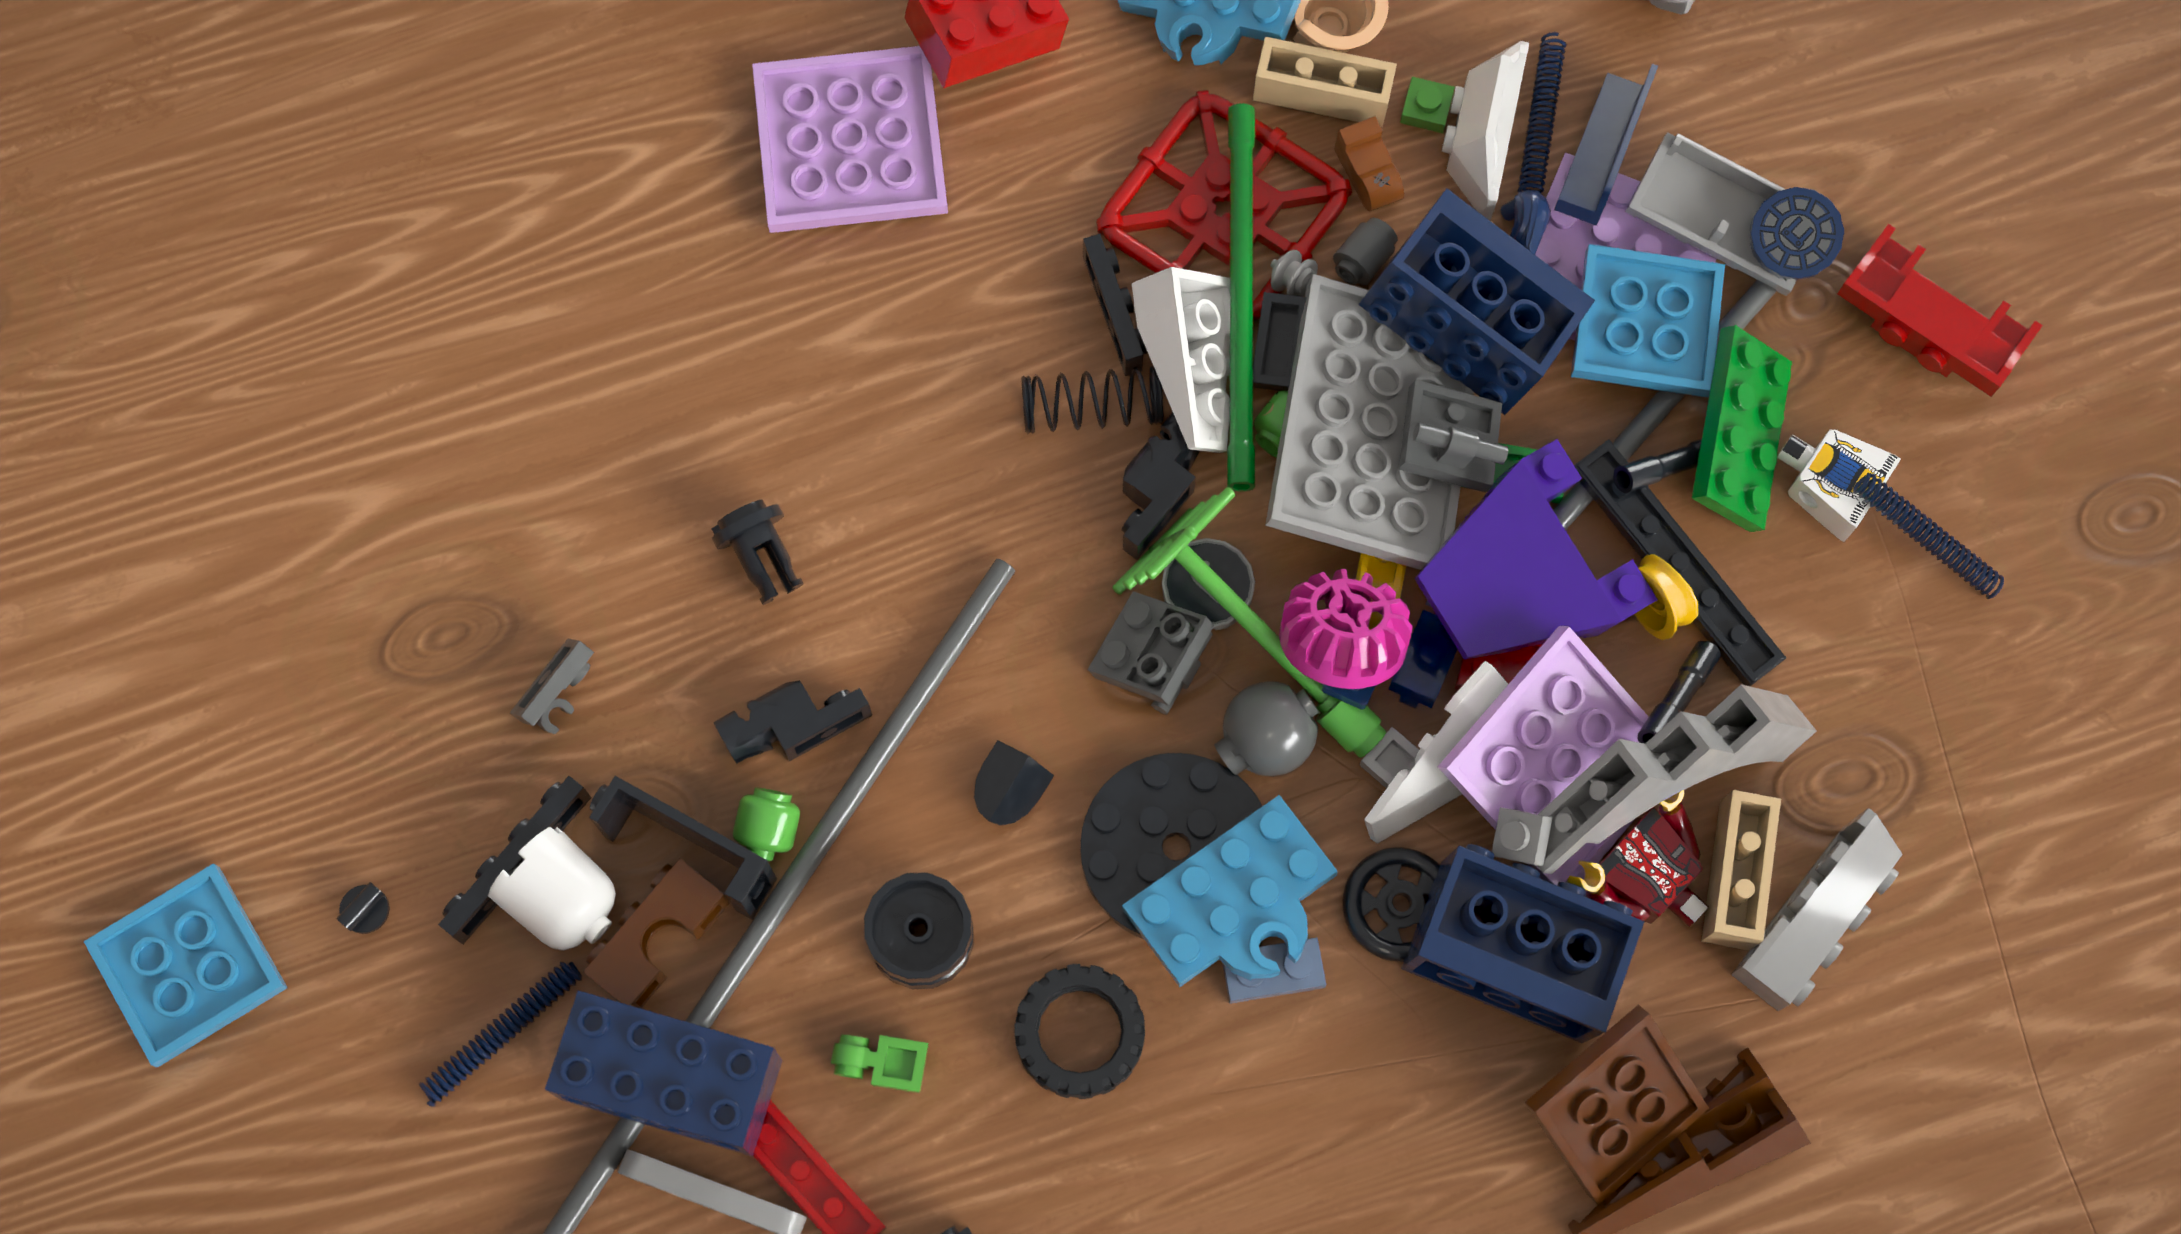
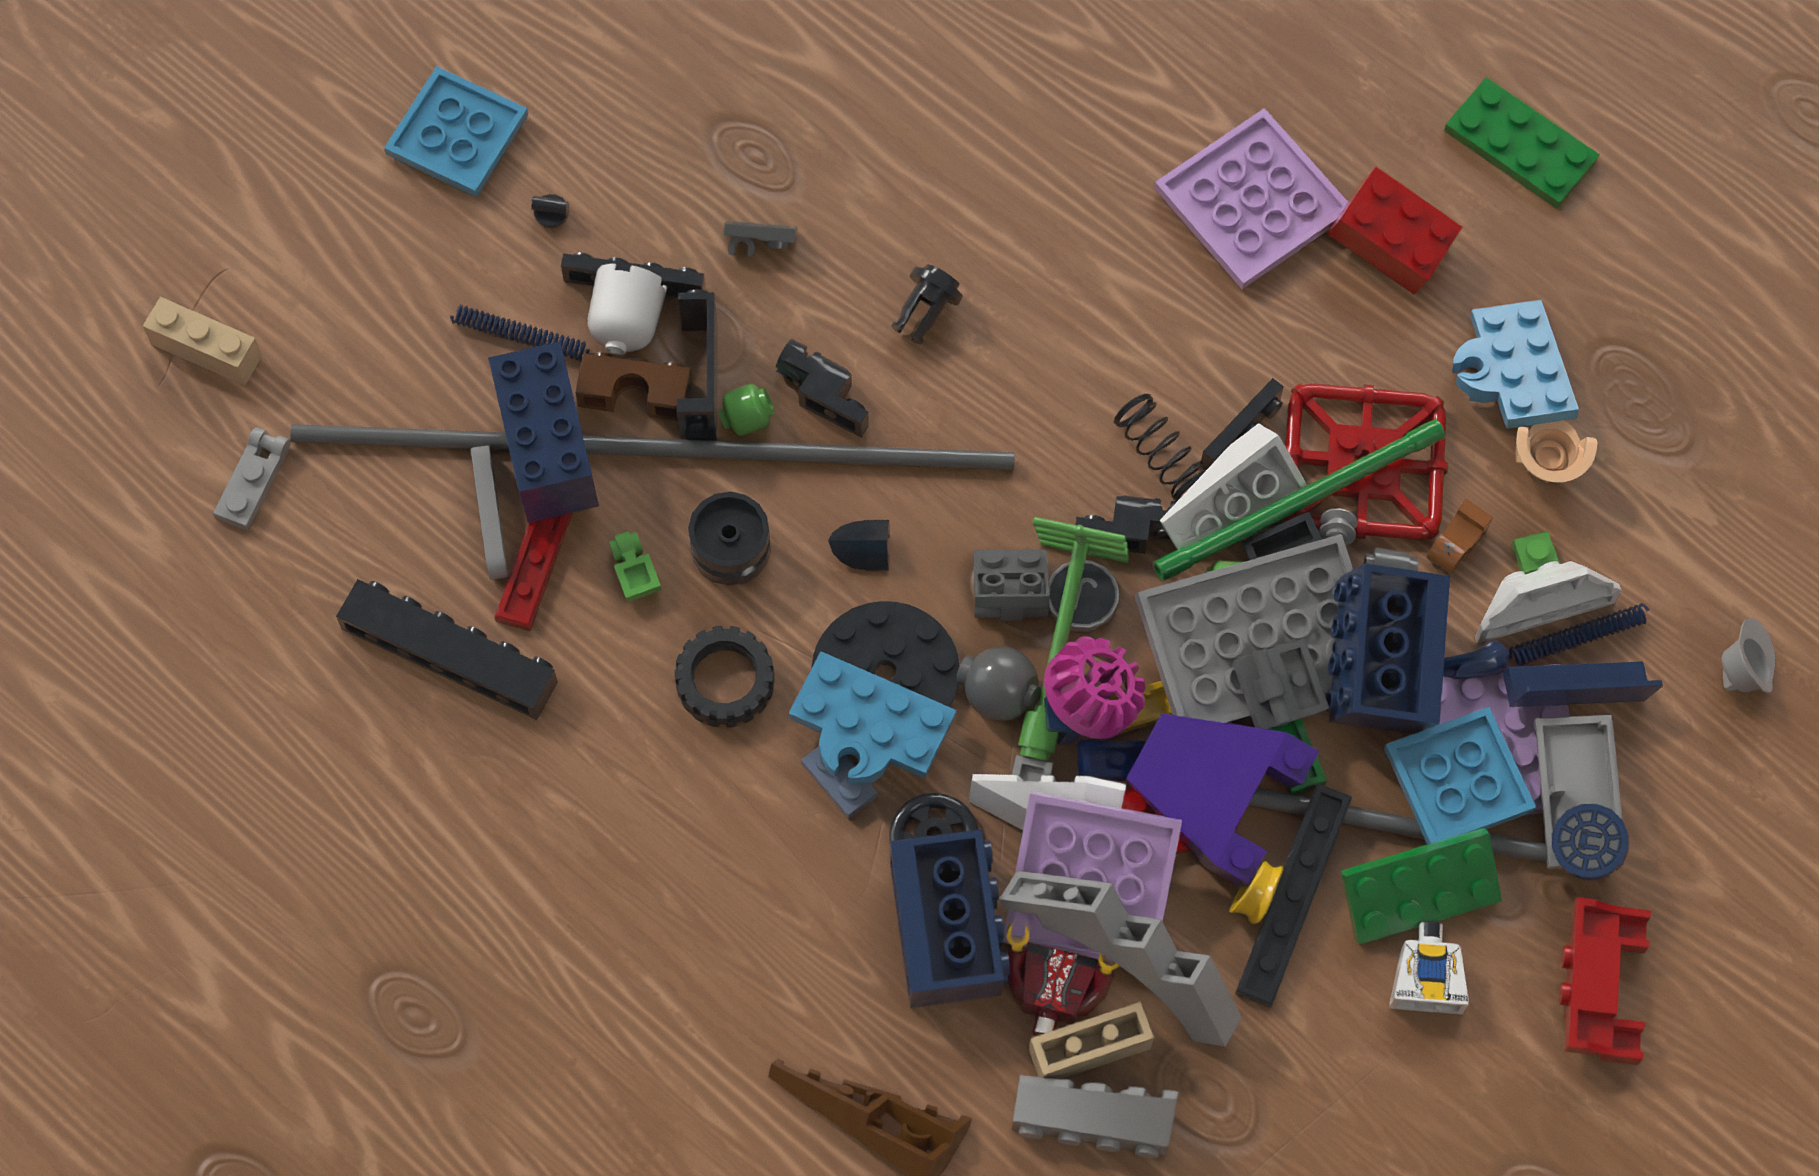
camera: 60 degrees right, 5 degrees down
(1323, 81) = (1498, 471): tan brick -> none
(1521, 836) = (1016, 871): light grey plate -> none
(1617, 1104) = (871, 1035): reddish brown plate -> none
(1653, 469) = (1347, 836): black piece -> none
(1690, 677) = (1213, 943): black piece -> none
(1927, 528) = (1427, 1034): dark blue piece -> none

